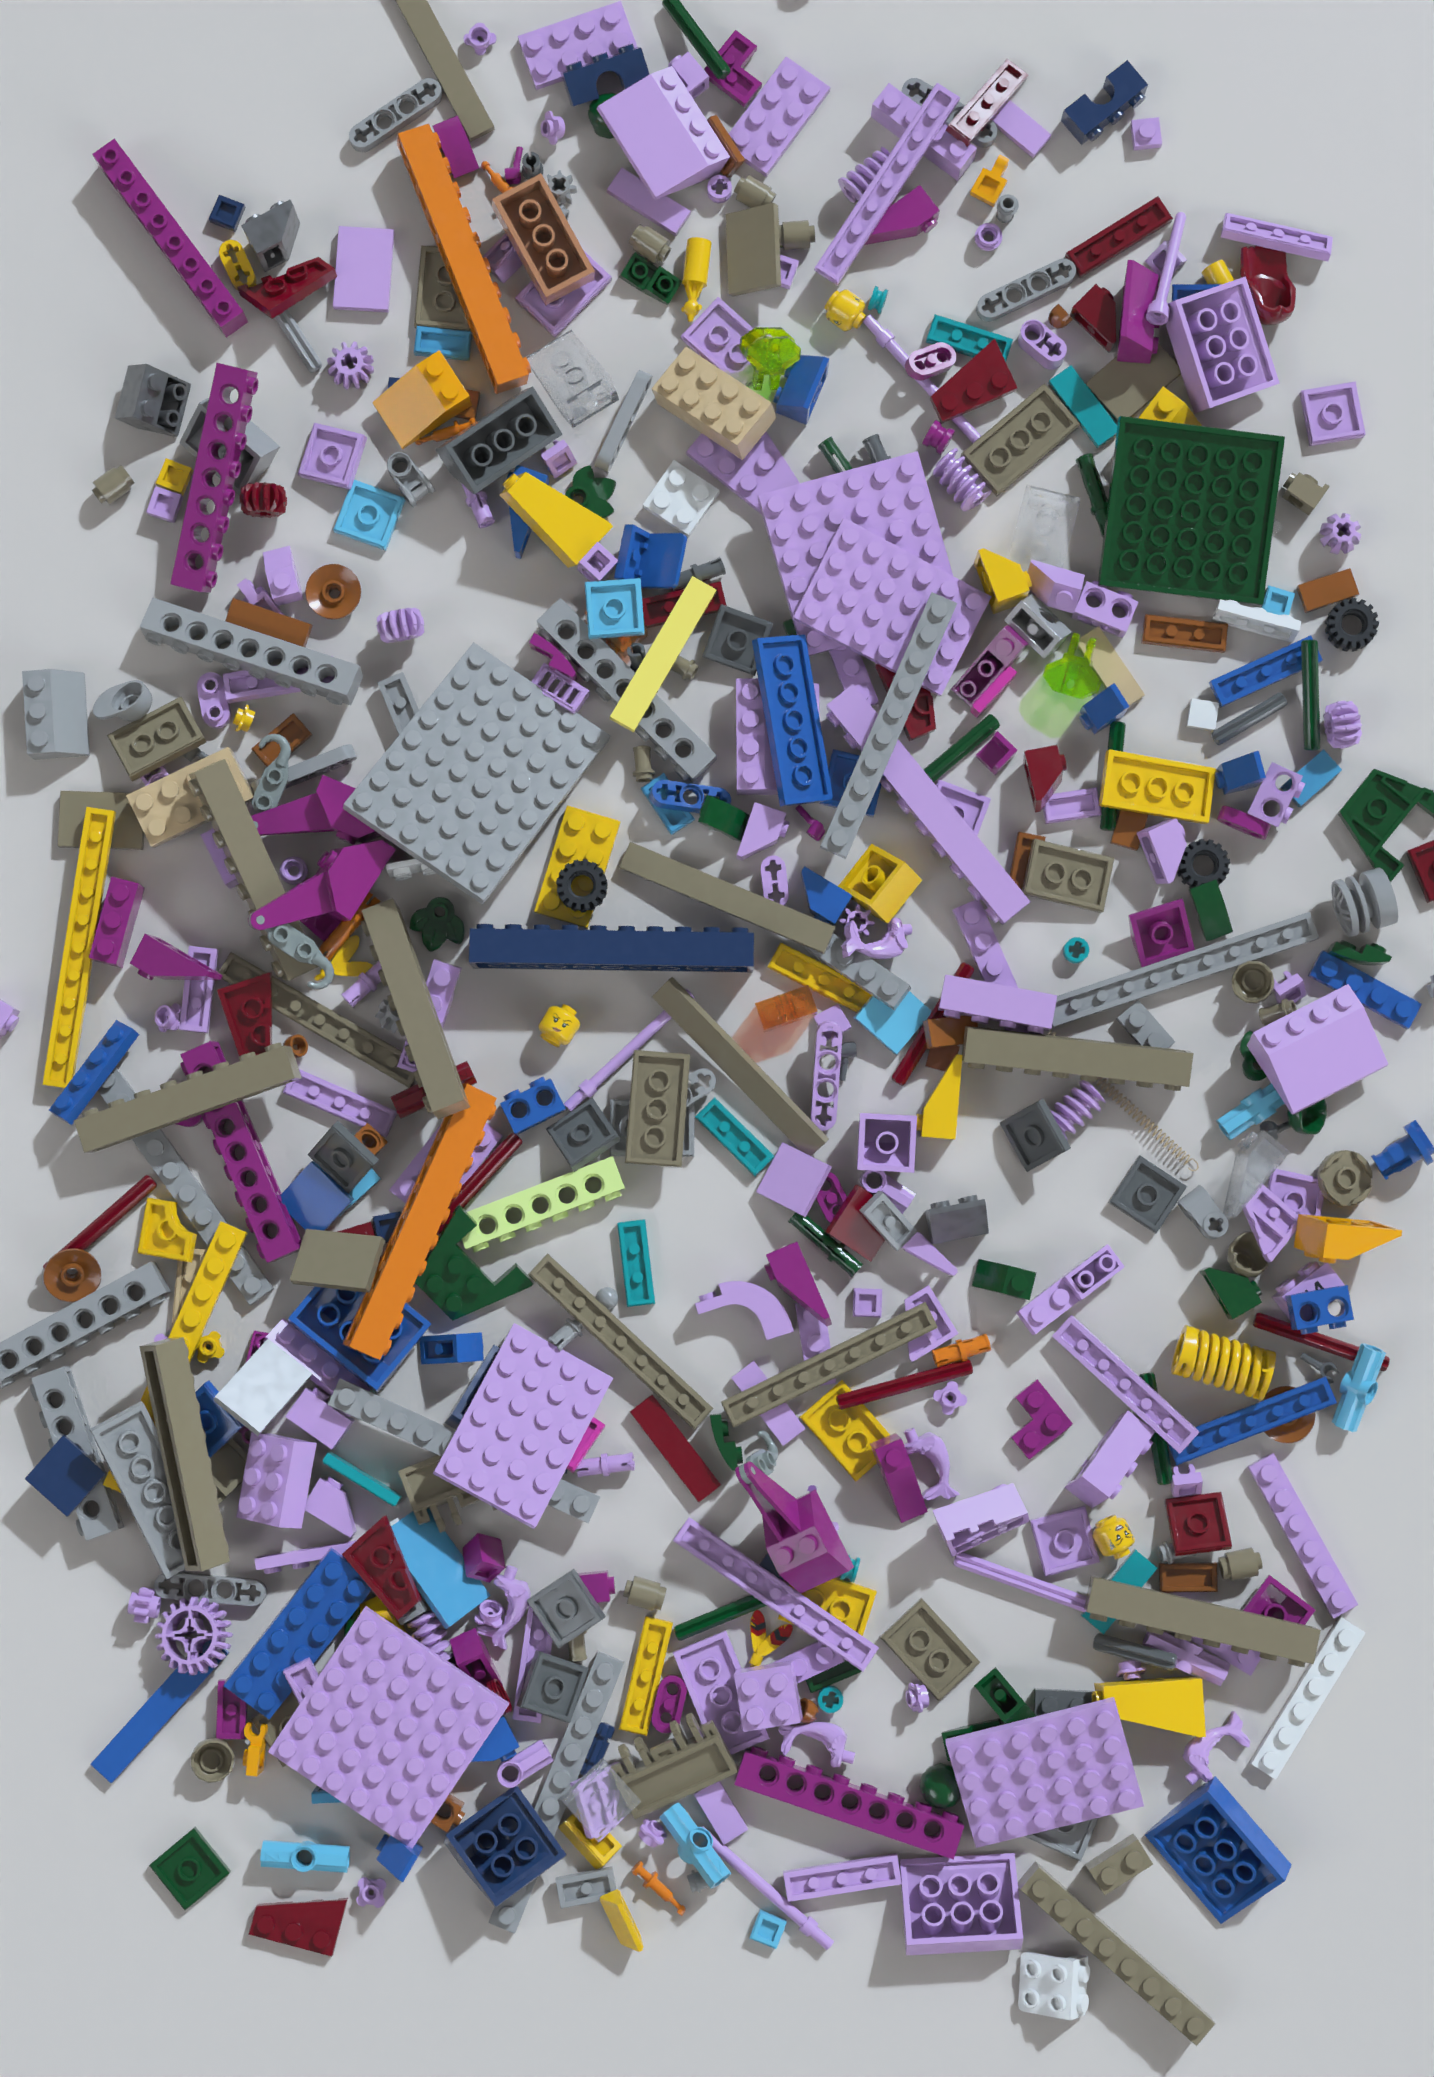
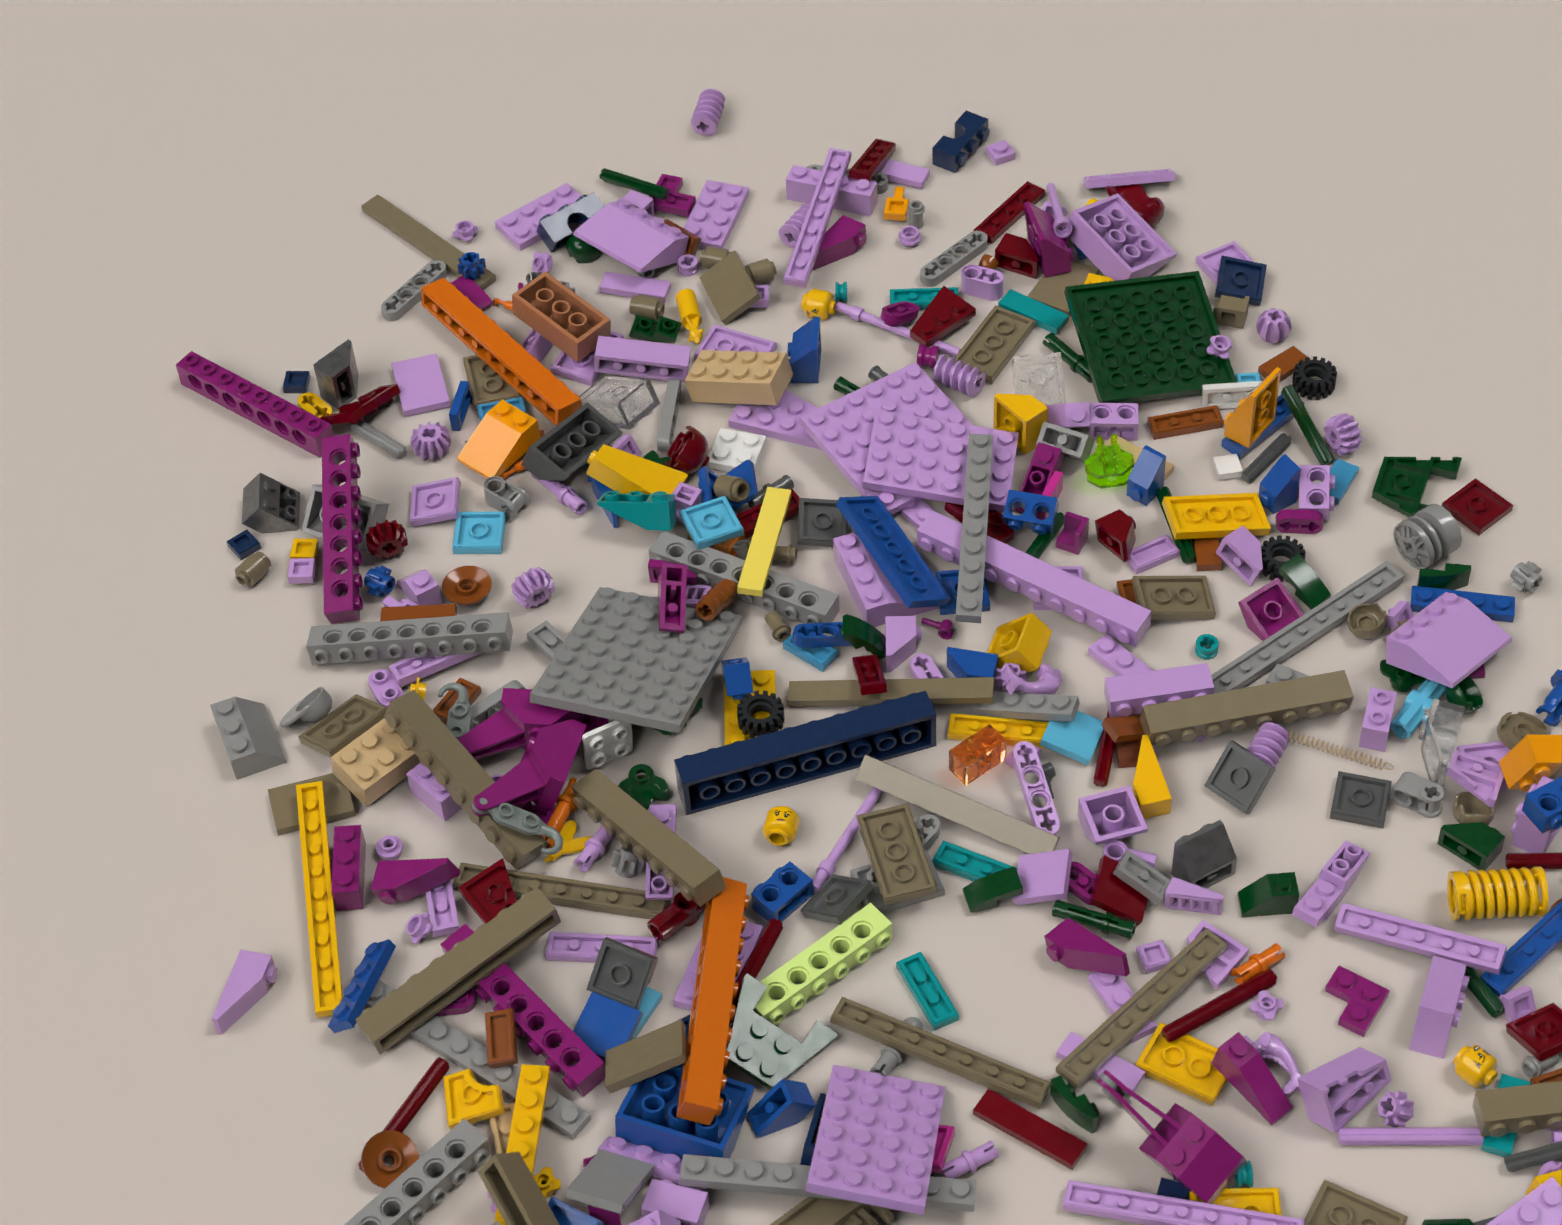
camera: 15 degrees left, 35 degrees down
(113, 440) = (244, 544): none -> dark blue tile
(173, 909) = (389, 853): none -> lavender plate
(209, 1184) = (501, 1038): none -> dark orange tile
(242, 553) = (379, 581): none -> blue gear
(397, 323) = (460, 406): none -> blue tile
(460, 110) = (471, 265): none -> blue gear
(536, 708) = (672, 597): none -> magenta slope
(544, 564) = (648, 511): none -> teal slope
(573, 827) = (737, 677): none -> blue slope
(586, 717) = (716, 599): none -> dark orange axle
(618, 327) = (641, 358): none -> lavender brick
(623, 492) = (688, 451): none -> dark red cylinder
(651, 568) = (732, 487): none -> dark tan brick
(711, 871) = (869, 674): none -> dark red tile
(739, 1177) = (996, 886): none -> dark green slope
(763, 1303) = (1047, 980): lavender arch -> none
(769, 354) = (770, 333): clear neon green hinge -> none
(963, 712) = (1033, 505): none -> blue brick
(1018, 1554) = (1395, 1108): none -> lavender gear
(1064, 1541) = (1433, 1090): lavender tile -> none
(1206, 1110) = (1377, 719): none -> lavender brick
(1253, 668) = (1254, 412): none -> light orange slope
(1270, 553) = (1222, 342): none -> lavender plate
(1334, 448) = (1240, 279): none -> dark blue tile

